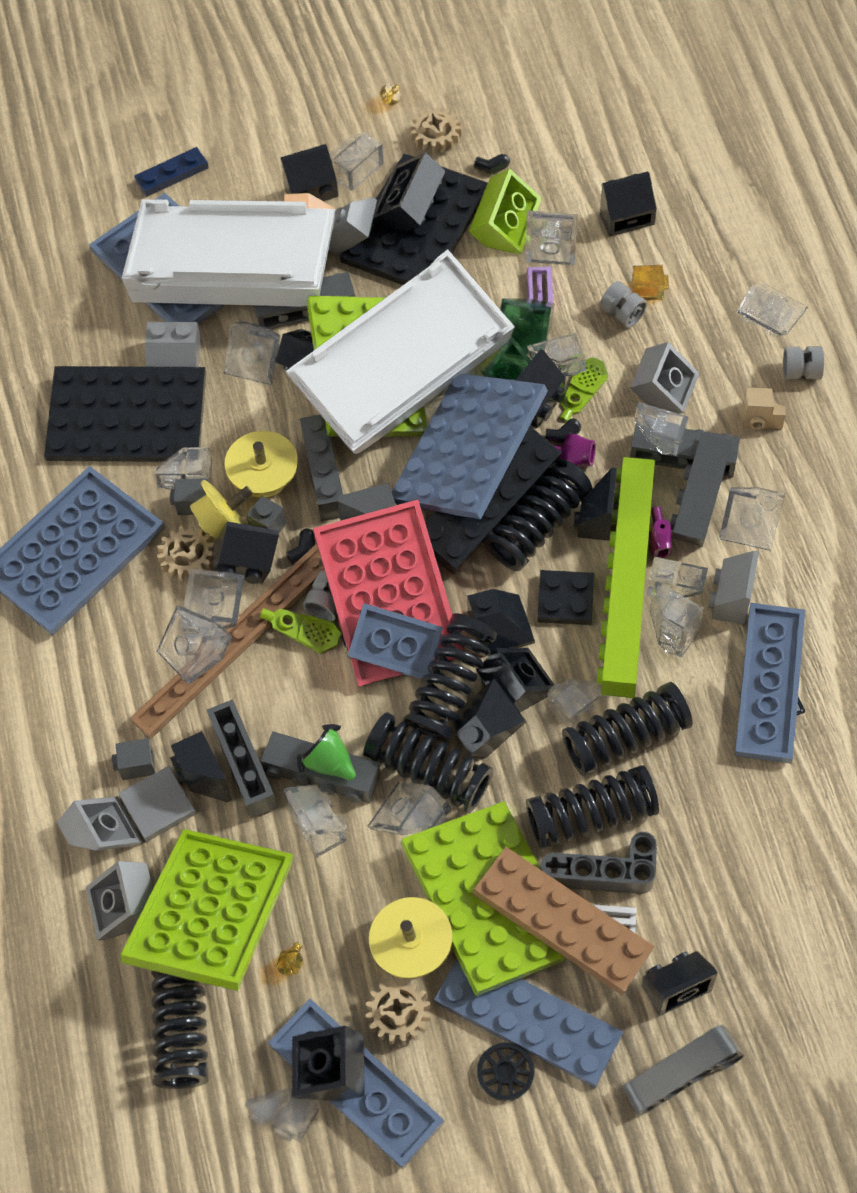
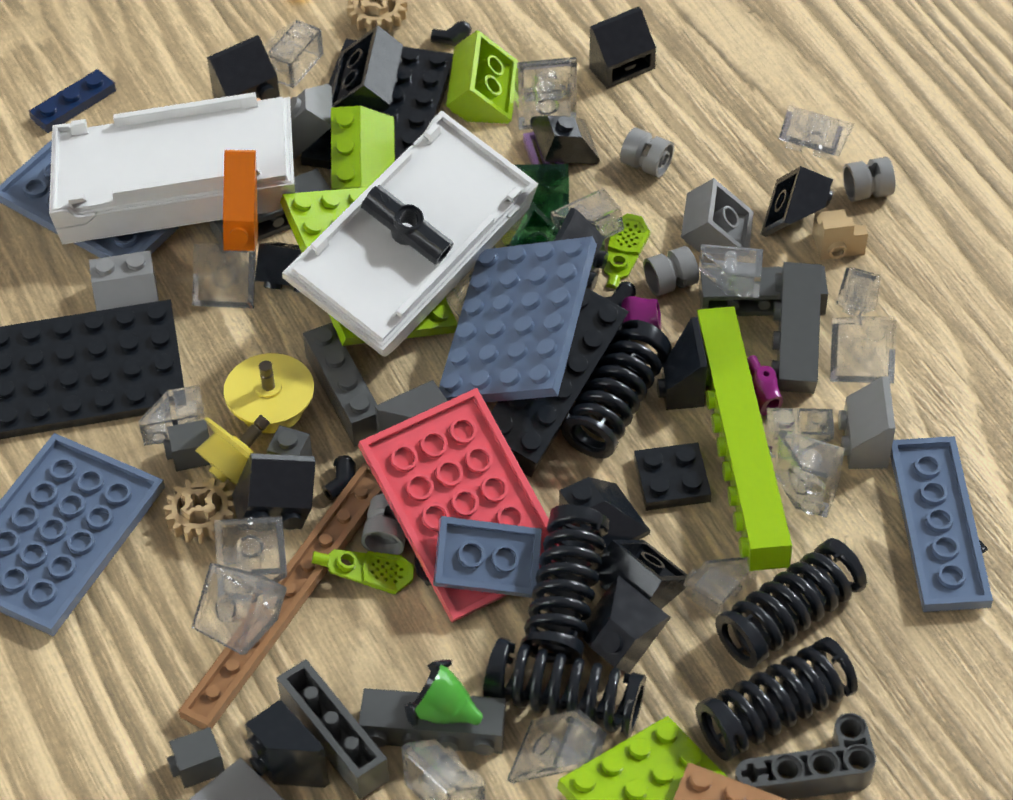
camera: 15 degrees left, 10 degrees down
(272, 297) = (240, 201): none -> orange slope
(384, 335) = (420, 236): none -> black piece
(386, 260) = (360, 146): none -> lime slope
(559, 280) = (564, 139): none -> black slope
(613, 416) = (671, 271): none -> light grey wheel
(649, 281) = (669, 123): clear yellow brick -> none
(733, 373) = (796, 197): none -> black slope
(760, 467) = (858, 291): none -> clear slope

